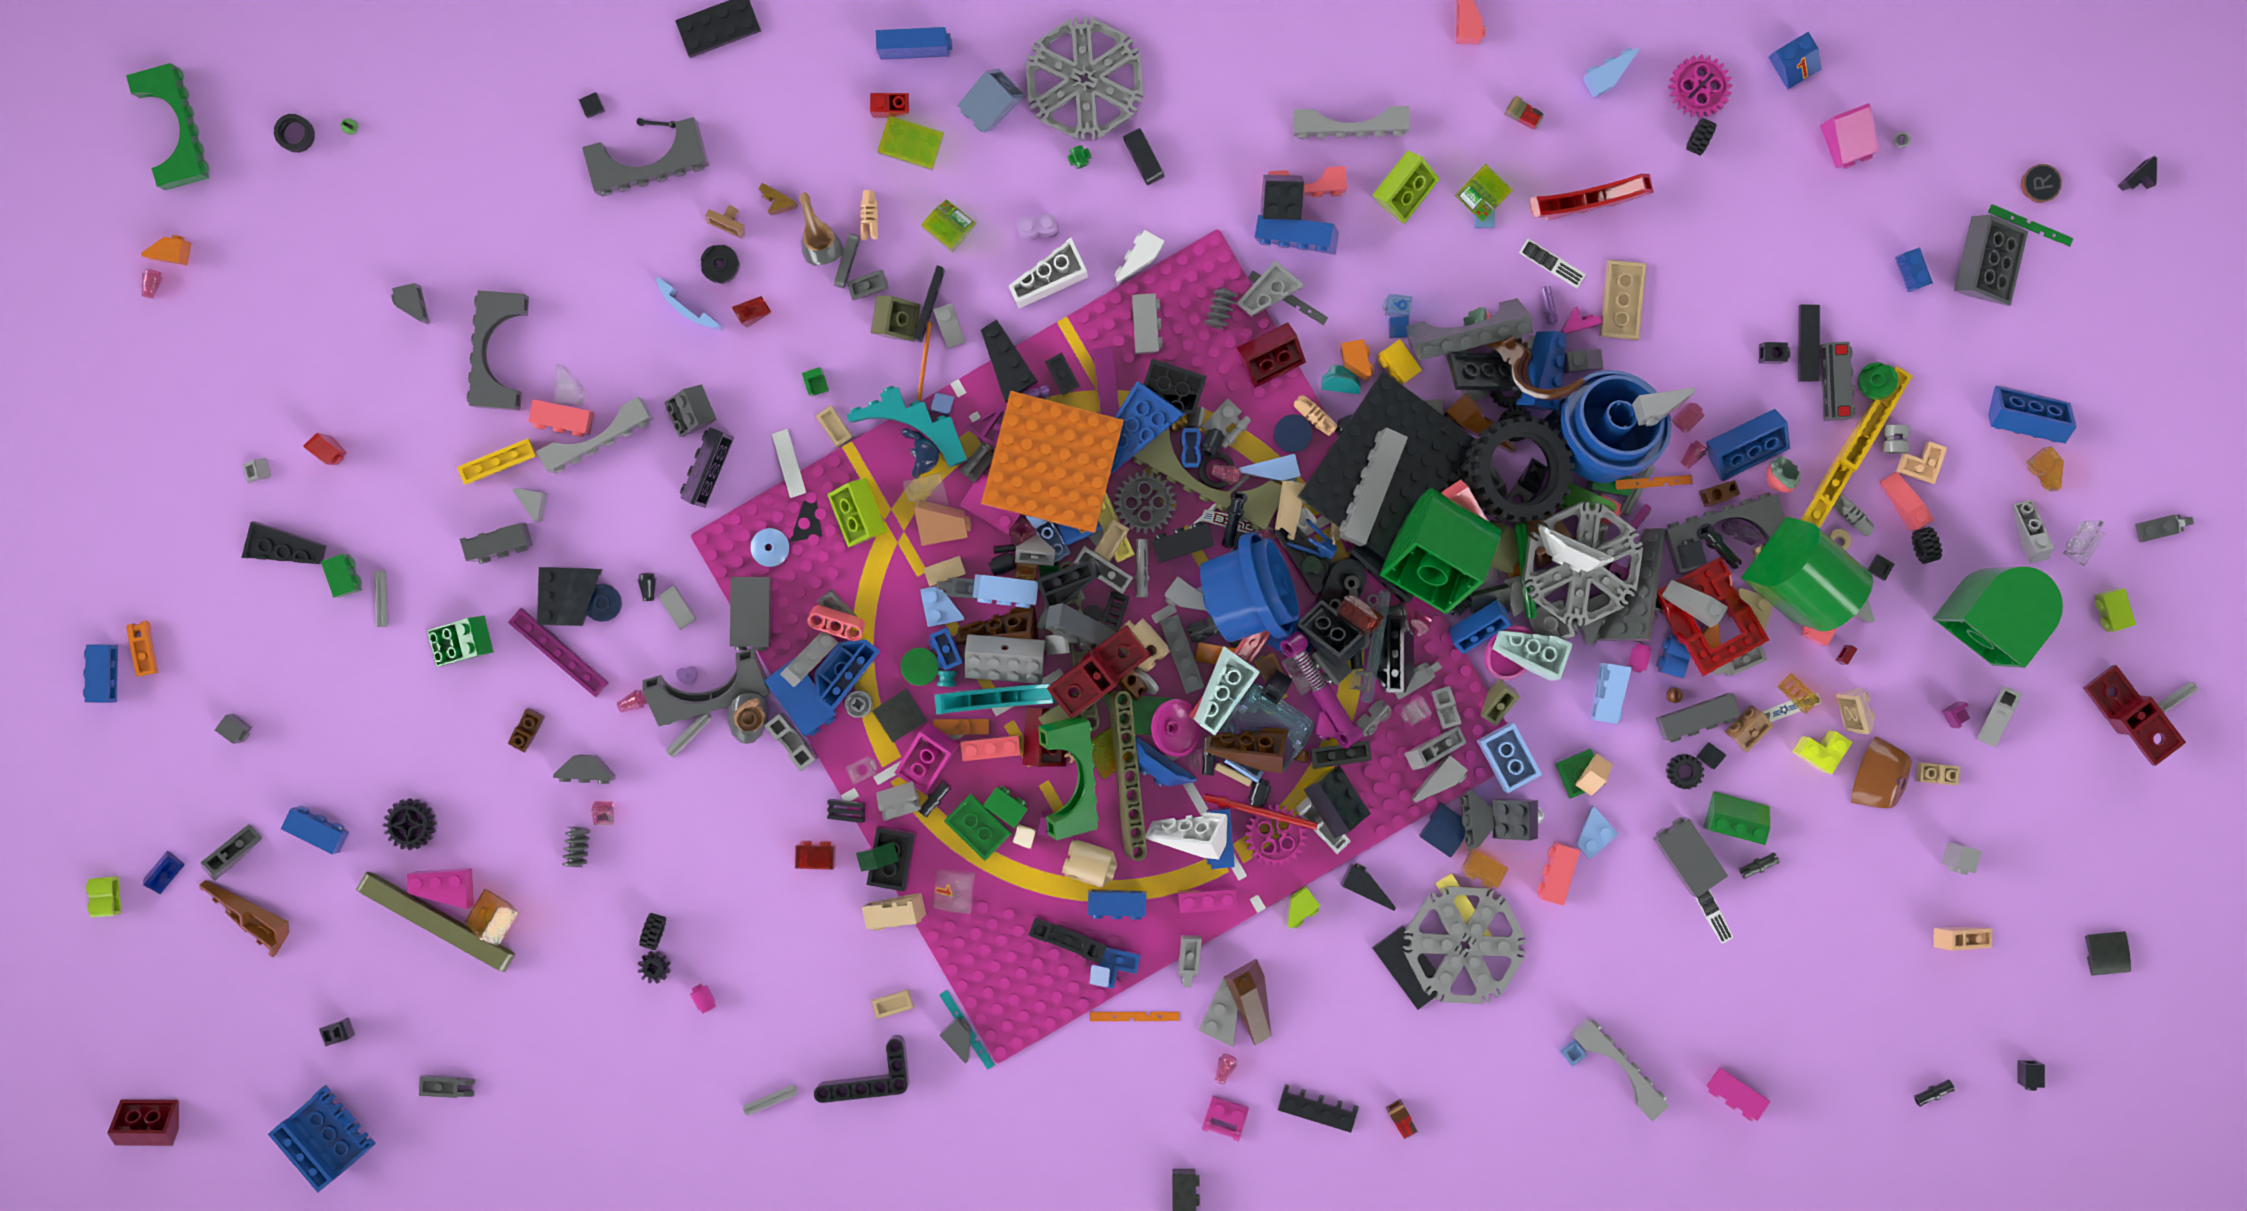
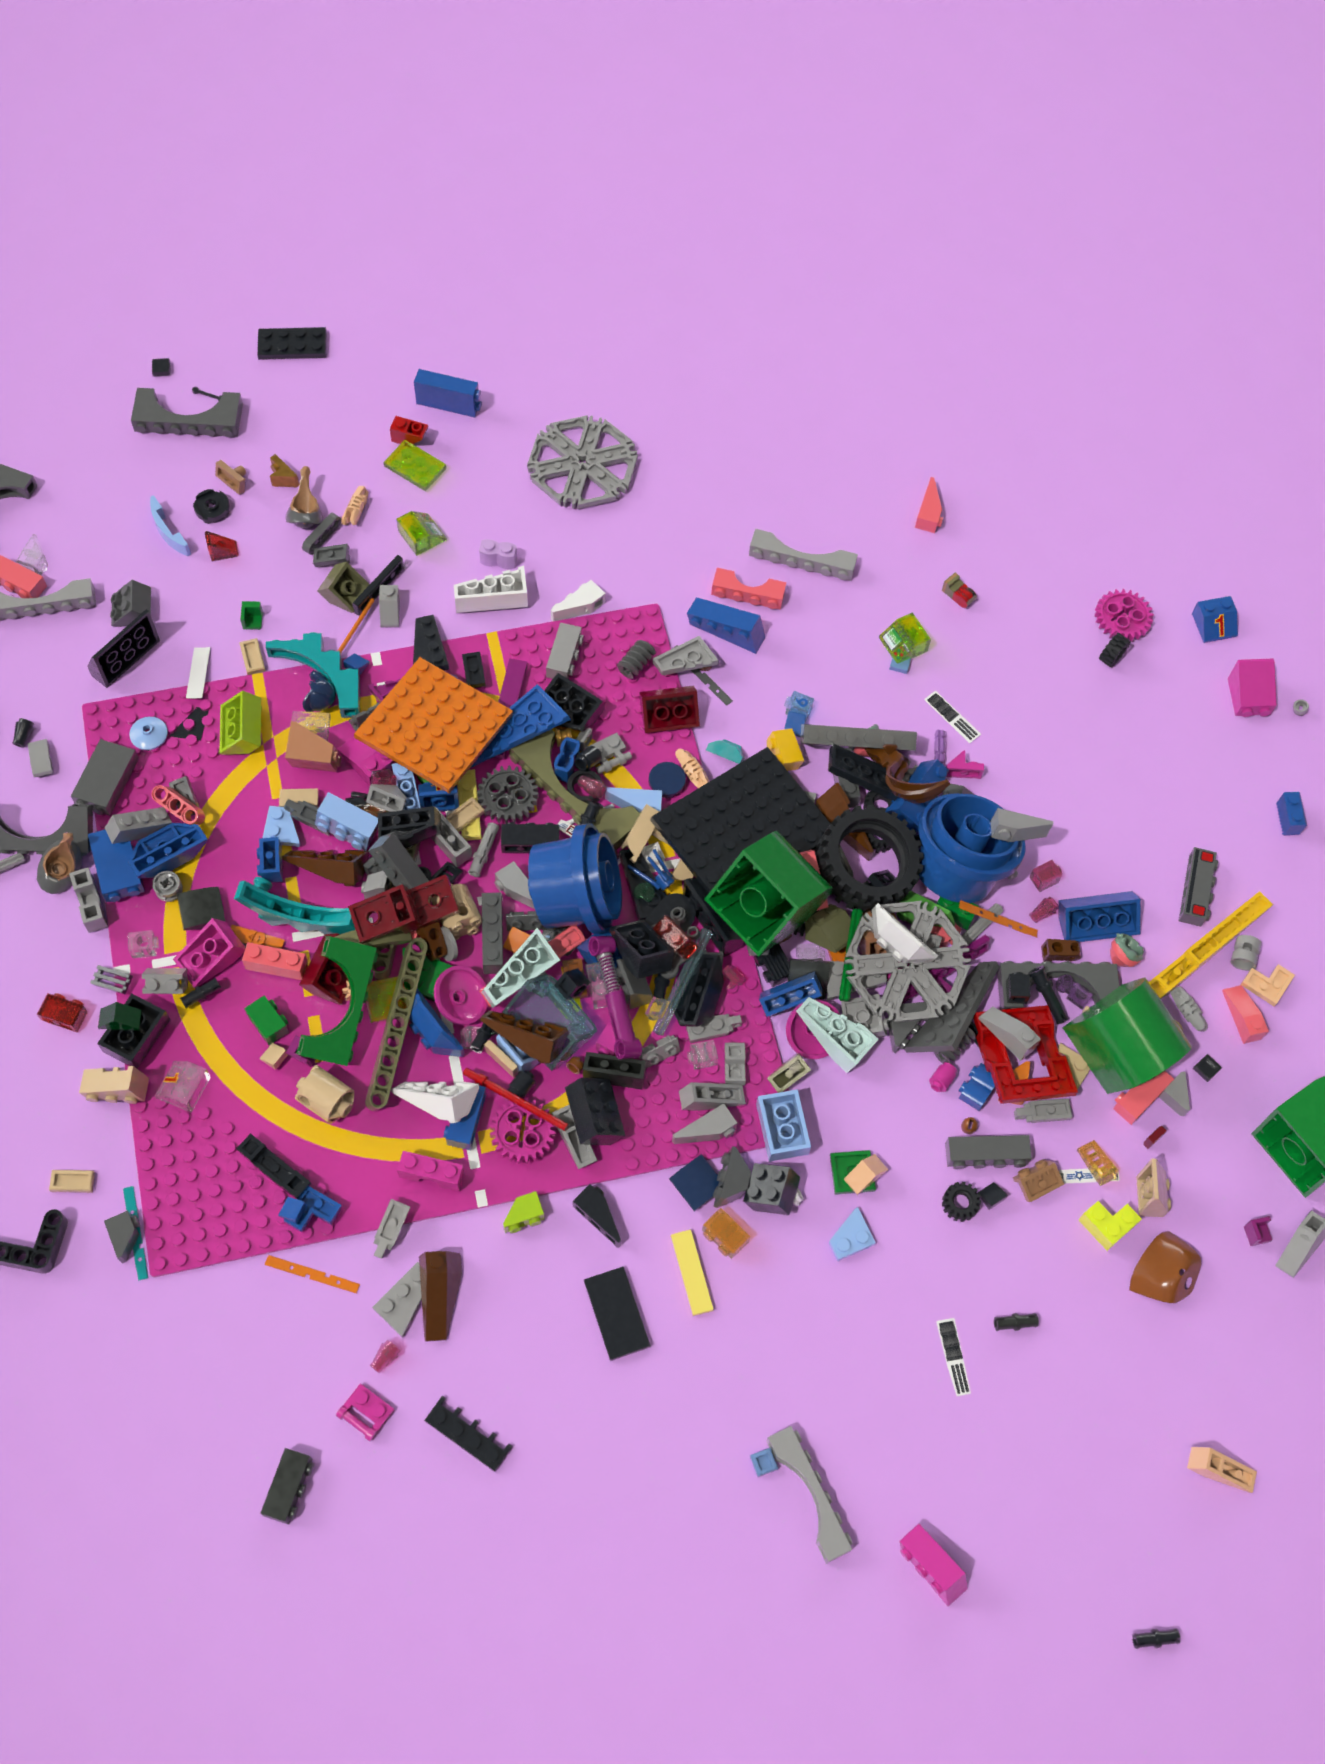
camera: 15 degrees right, 25 degrees down
(687, 676) = (21, 819): medium lavender piece -> none
(919, 666) = (237, 869): green tile -> none
(977, 826) = (231, 1033): green tile -> none
(990, 100) = (495, 452): sand blue slope -> none
(1004, 659) = (319, 881): light grey brick -> none
(1079, 157) = (555, 514): green gear -> none
(1116, 904) = (338, 1147): blue brick -> none
(1143, 156) = (611, 530): black beam -> none
(1282, 197) = (721, 584): black brick -> none
(1355, 358) = (746, 735): orange slope -> none
(1373, 486) = (723, 829): light grey brick -> none
(1401, 1118) = (554, 1473): leg -> none
(1406, 186) = (836, 616): lime slope -> none
(1450, 944) = (685, 1325): light grey plate -> none
(1558, 873) = (800, 1262): coral brick -> none
(1585, 200) = (1021, 670): red arch -> none
(1606, 76) = (1042, 583): light blue slope -> none
(1610, 692) = (904, 1098): light blue wedge -> none
(1623, 300) = (1010, 763): tan tile -> none
(1690, 856) = (944, 1288): dark grey brick -> none
(1738, 818) = (1004, 1267): green slope -> none
(1766, 356) = (1137, 850): black brick -> none
(1808, 343) = (1178, 849): black tile -> none
(1877, 381) = (1237, 897): green tile -> none
(1926, 545) = (1257, 1055): black tyre -> none
(1937, 773) = (1226, 1287): tan slope -> none
(1961, 858) = (1235, 1376): light grey brick -> none
(2031, 1074) = (1271, 1651): black brick -> none

